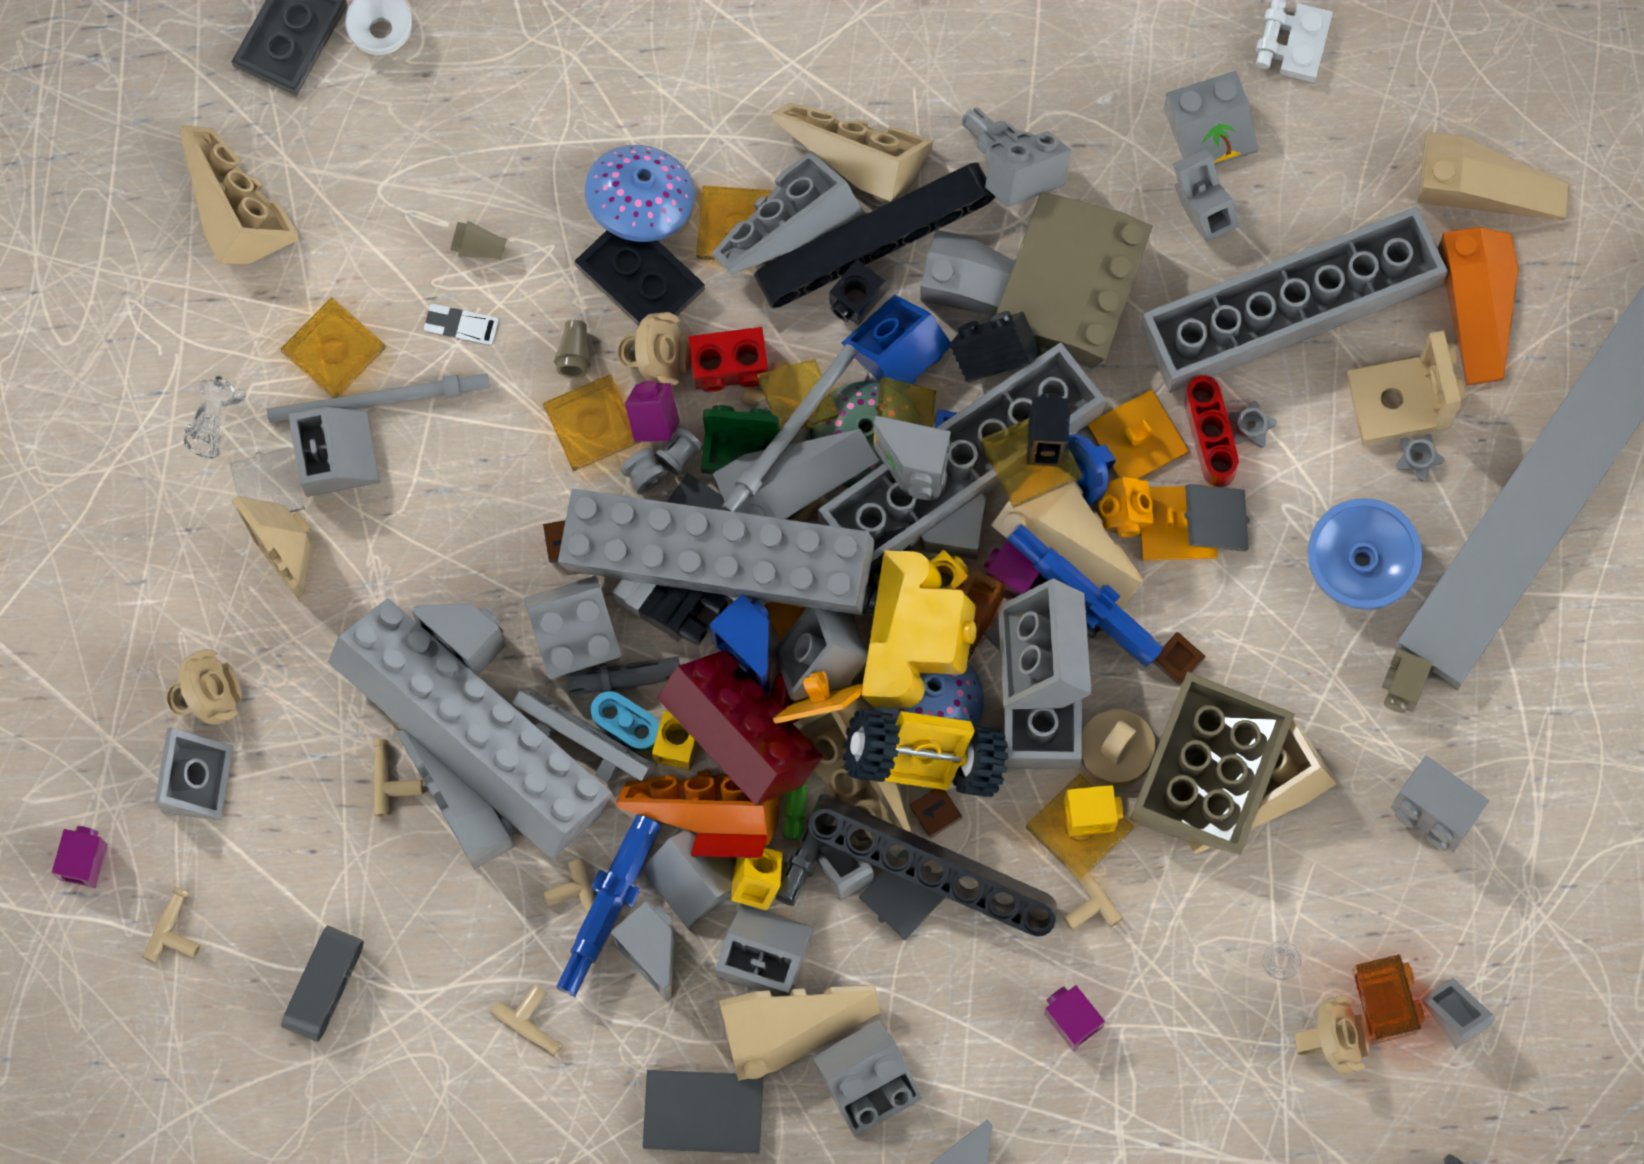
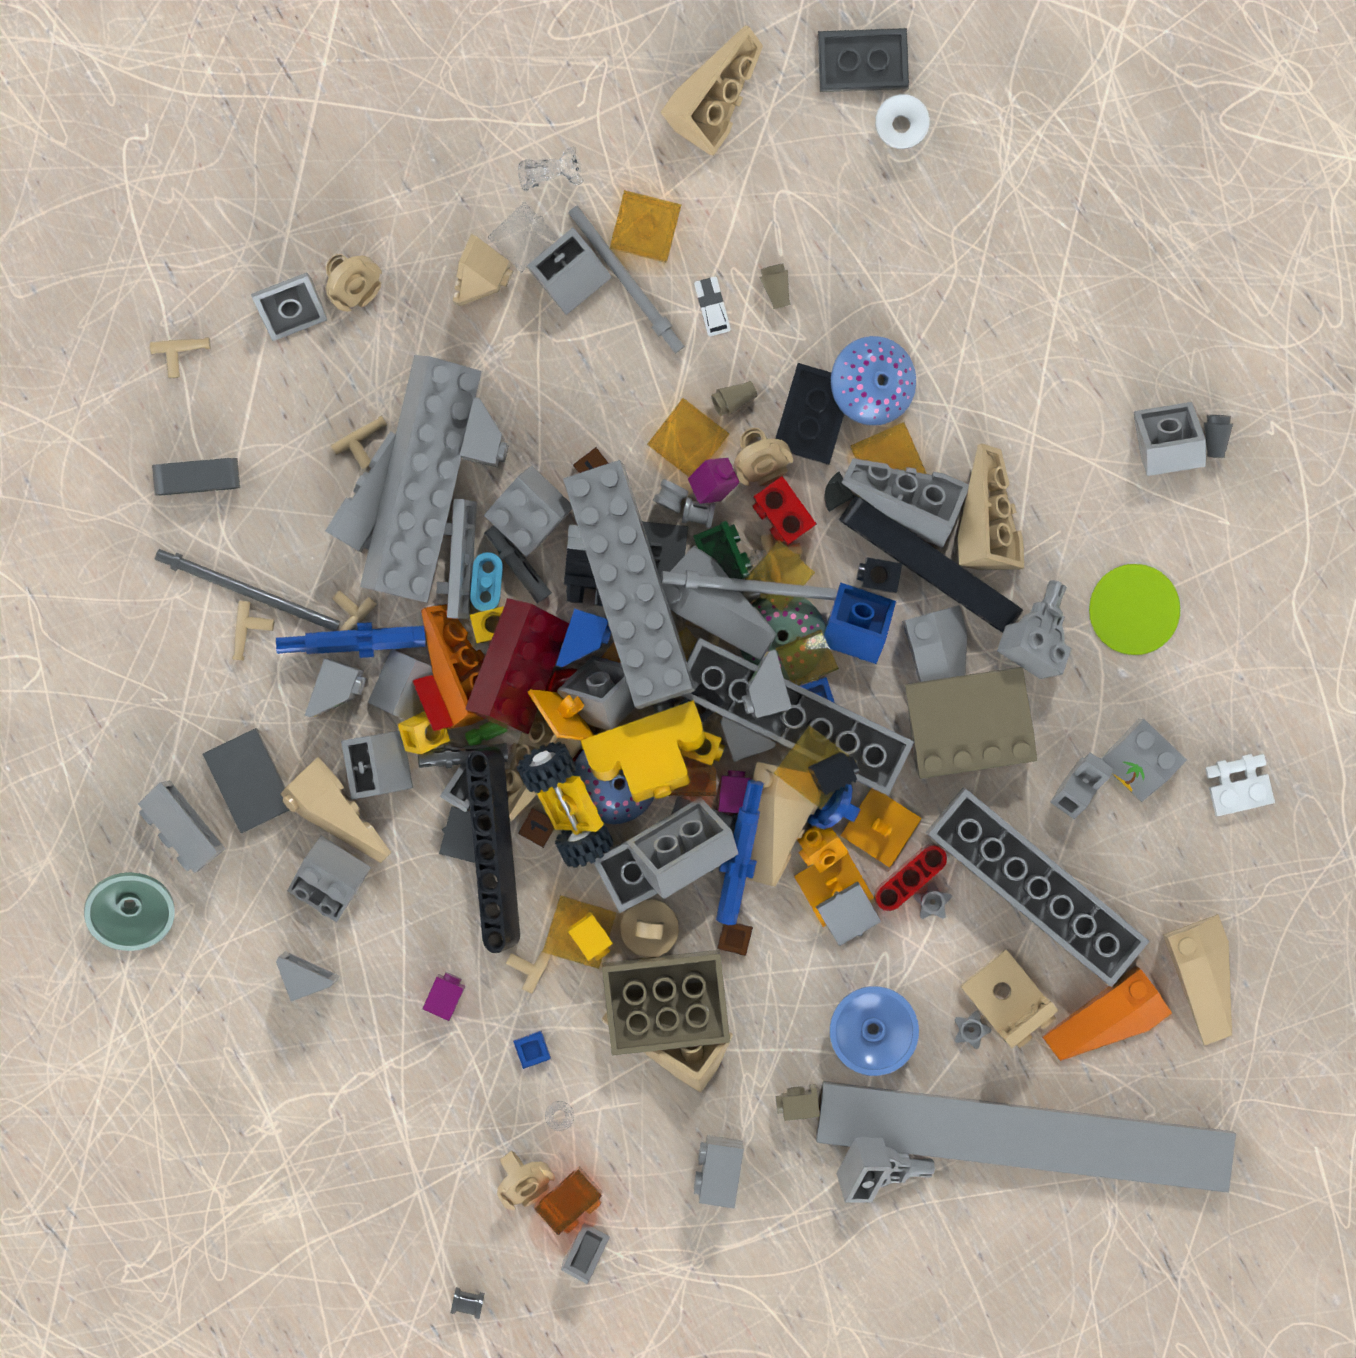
camera: 60 degrees right, 15 degrees up
(79, 856) = (192, 261): magenta brick -> none
(407, 1059) = (177, 562): none -> dark grey bar
(739, 295) = (836, 492): none -> pearl dark grey tile
(994, 346) = (888, 696): black brick -> none
(1041, 53) = (1134, 609): none -> lime sticker
(1188, 952) = (532, 1049): none -> blue tile
(1520, 632) = (873, 1166): none -> light grey brick

